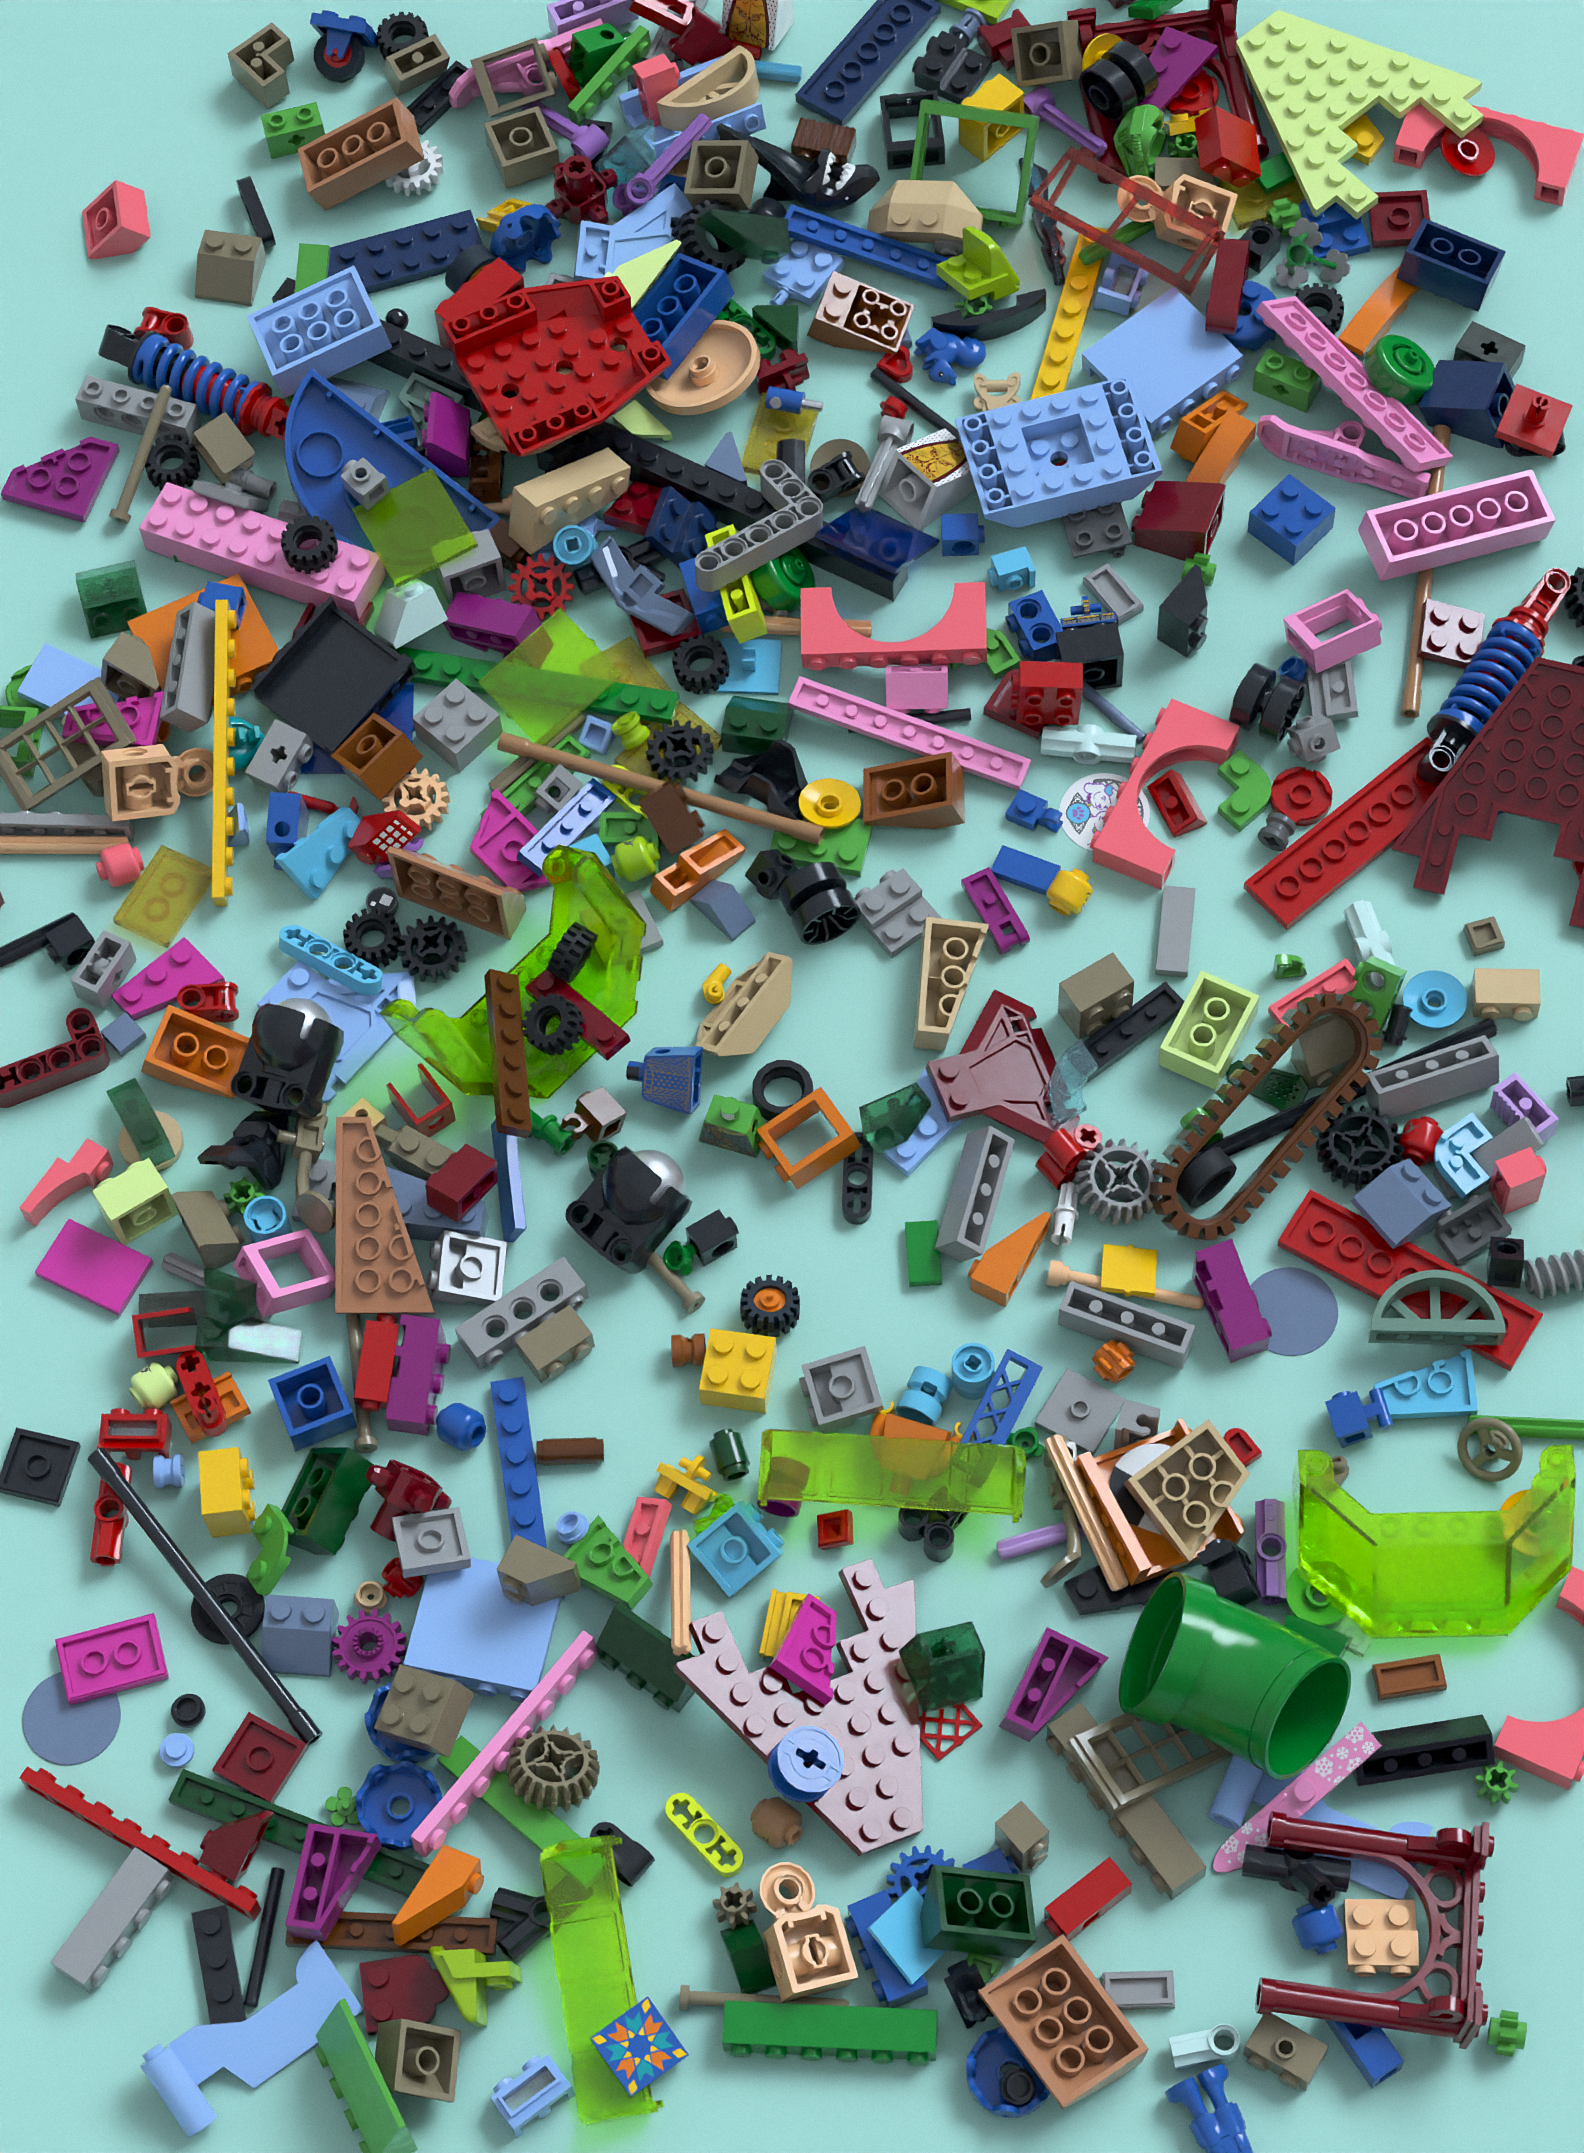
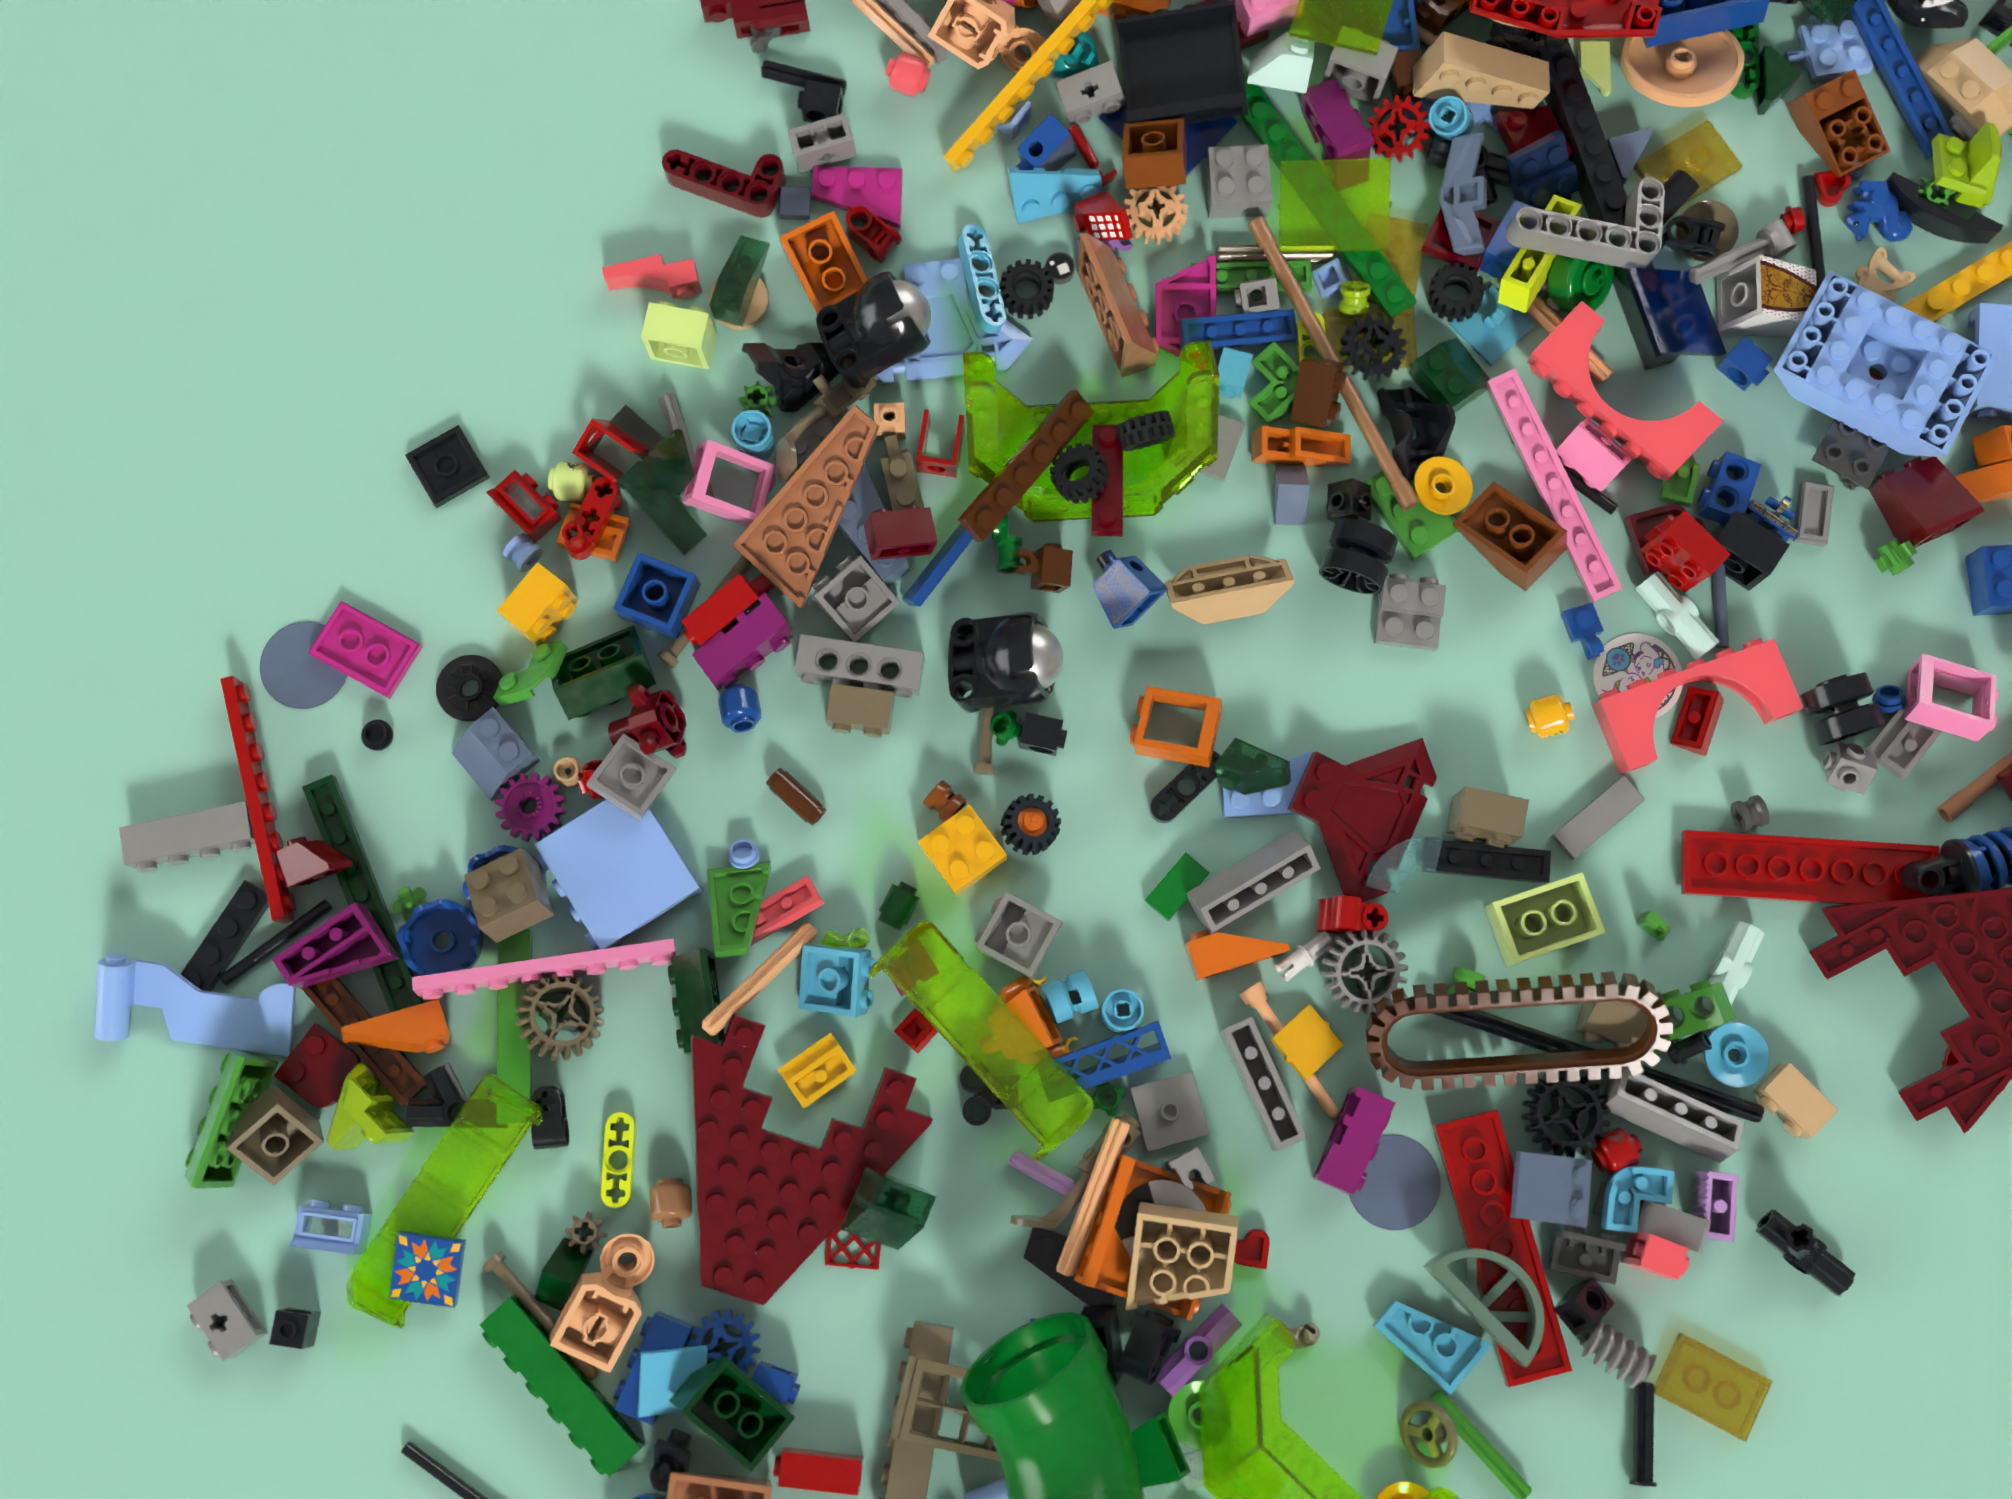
camera: 40 degrees right, 15 degrees up
(94, 1267) = (616, 356): dark pink tile -> none
(109, 1532) = (442, 560): red piece -> none
(164, 896) = (917, 125): clear yellow tile -> none
(177, 1750) = (343, 756): light blue plate -> none
(208, 1227) = (710, 400): dark tan slope -> none
(260, 1758) = (388, 815): dark red plate -> none
(296, 1716) = (439, 810): black piece -> none
(432, 950) = (1048, 338): black gear -> none
(518, 1460) = (748, 779): blue plate -> none
(535, 1573) = (669, 869): dark tan slope -> none
(599, 1155) = (1022, 600): dark green wheel -> none
(635, 859) = (1261, 400): lime head -> none
(672, 1478) = (853, 898): yellow hips -> none
(713, 987) = (1227, 545): yellow arm -> none
(731, 1125) = (1134, 666): bright green torso -> none
(776, 1070) = (1206, 651): black tyre -> none
(786, 374) = (1736, 119): dark red hips -> none
(787, 1766) = (695, 1197): piece -> none
(790, 401) = (1721, 145): blue piece -> none
(807, 1649) = (801, 1106): dark pink wing -> none
(945, 969) = (1398, 692): tan wedge -> none
(987, 1966) = (703, 1444): bright green tile -> none
(995, 910) = (1482, 677): magenta plate -> none
(1012, 570) = (1755, 426): medium azure brick -> none
(1022, 1837) = (816, 1387): dark tan brick -> none
(1024, 870) = (1535, 667): blue tile -> none
(1049, 1682) = (945, 1292): magenta wedge -> none
(1114, 1361) = (1227, 1100): orange gear -> none
(1184, 615) = (1850, 582): black slope -> none
(1205, 1177) = (1429, 1029): black tyre -> none
(1251, 792) = (1765, 762): bright green plate -> none
(1261, 1092) = (1543, 1022): dark green piece -> none
(1301, 795) = (1796, 801): red tile -> none
(1334, 980) = (1653, 966): coral plate -> none
(1352, 1419) = (1353, 1310): blue brick -> none
(1484, 936) = (1824, 1038): dark tan tile -> none

